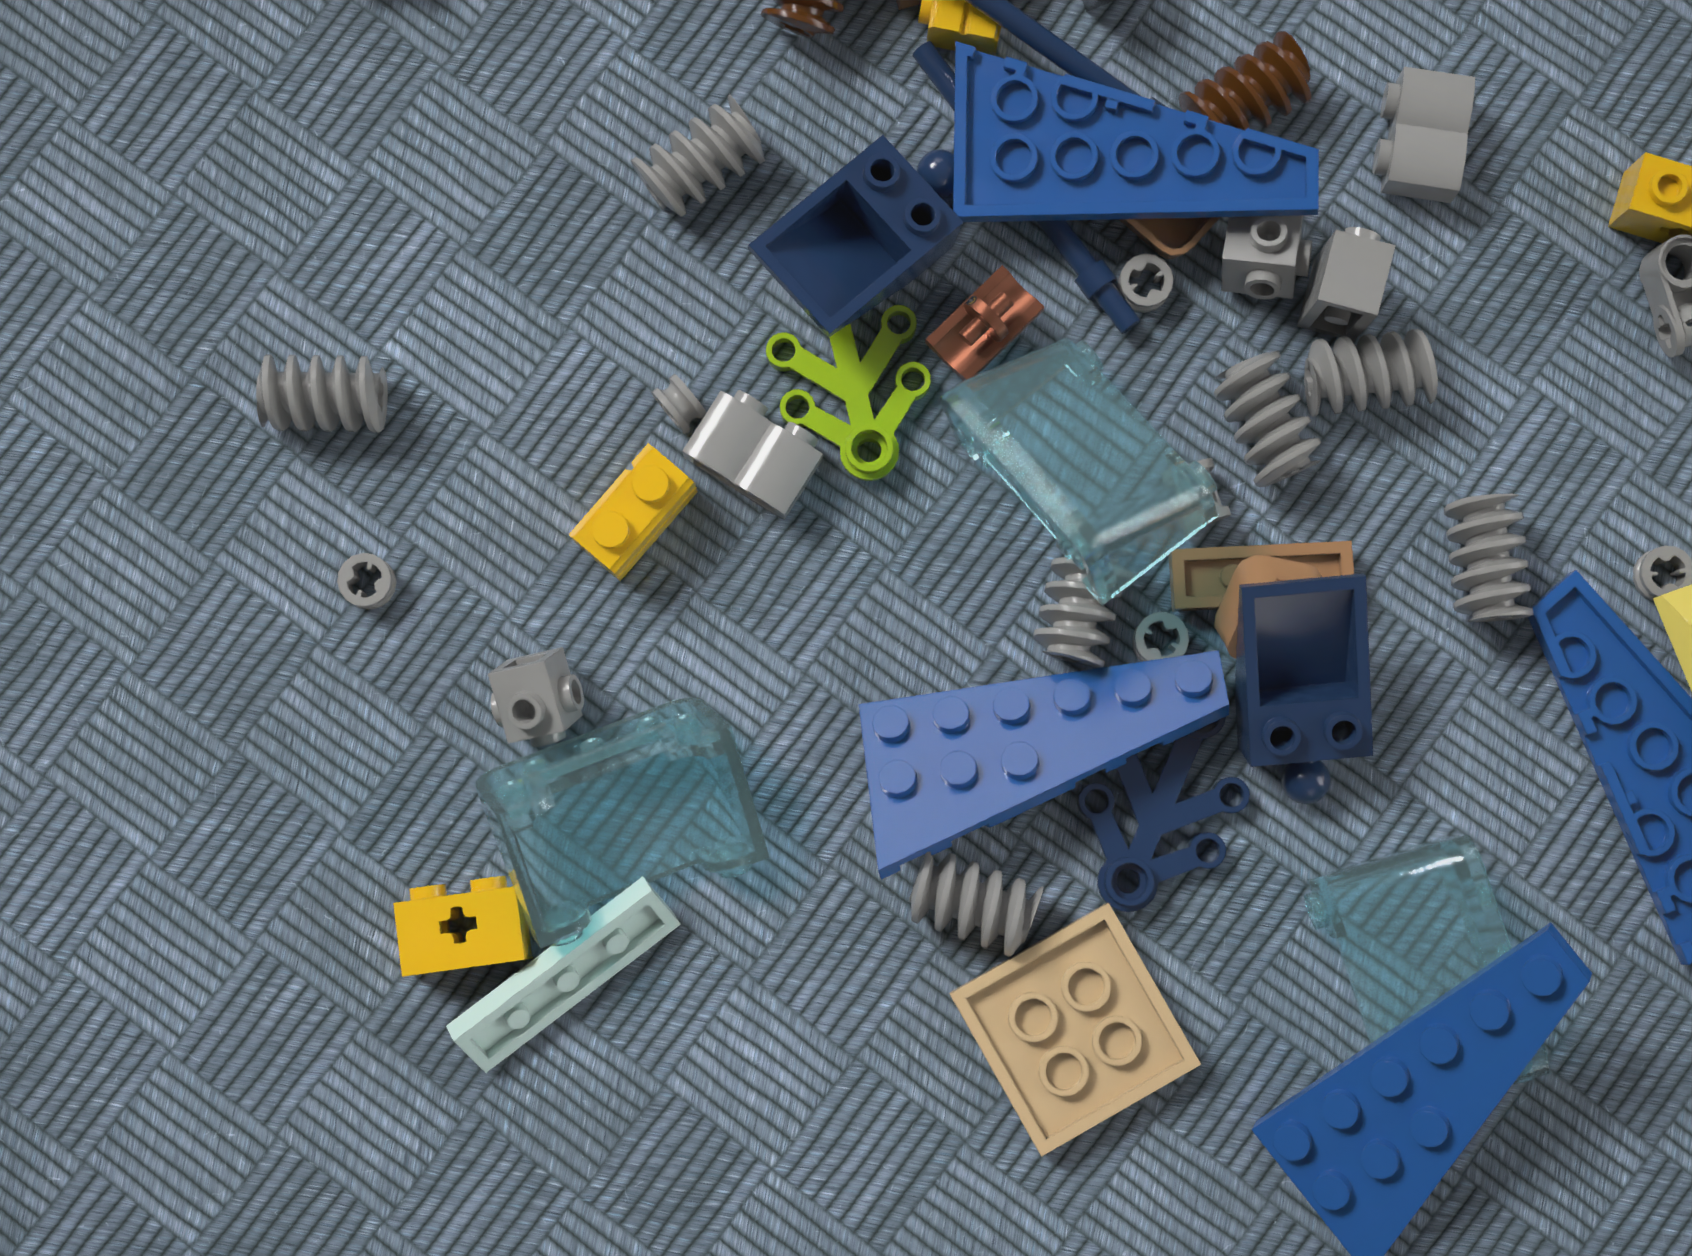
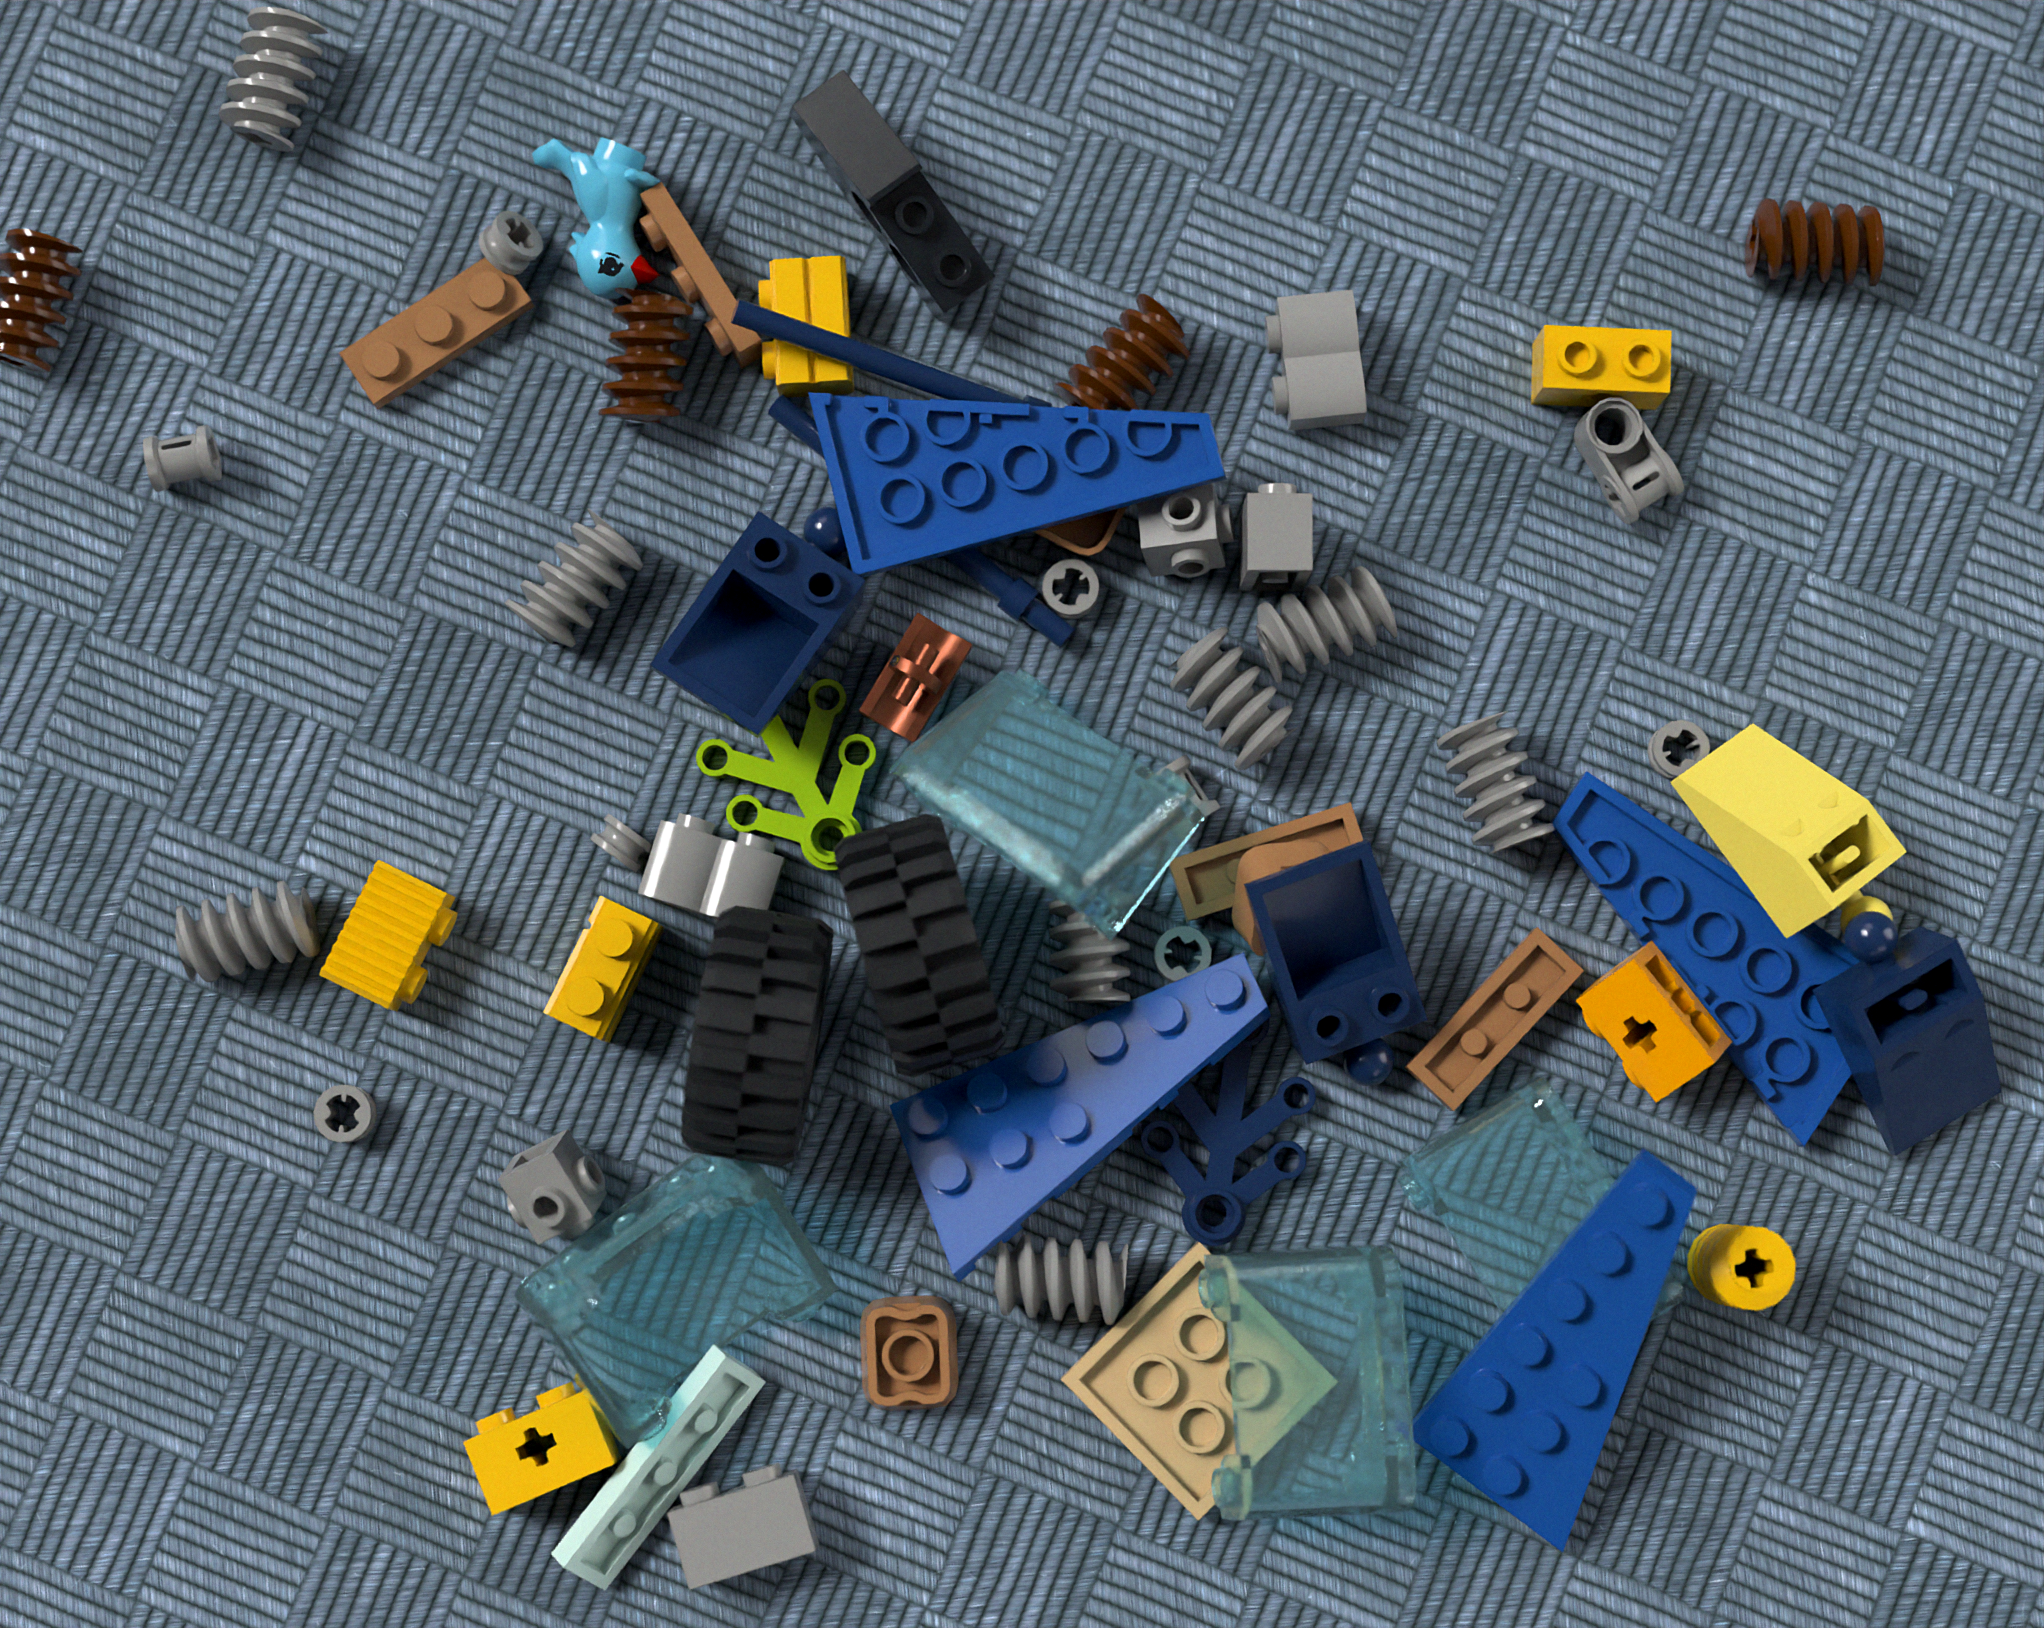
camera: 20 degrees left, 0 degrees up
(449, 432) = (389, 937): none -> yellow brick
(626, 1048) = (742, 1526): none -> light grey brick
(756, 604) = (756, 1036): none -> black tyre
(817, 933) = (909, 1353): none -> medium nougat piece
(929, 561) = (919, 945): none -> black tyre
(1184, 1059) = (1314, 1382): none -> clear light blue windscreen
(1431, 773) = (1493, 1019): none -> medium nougat plate
(1585, 783) = (1684, 1031): none -> light orange brick
(1605, 1058) = (1759, 1285): none -> yellow piece

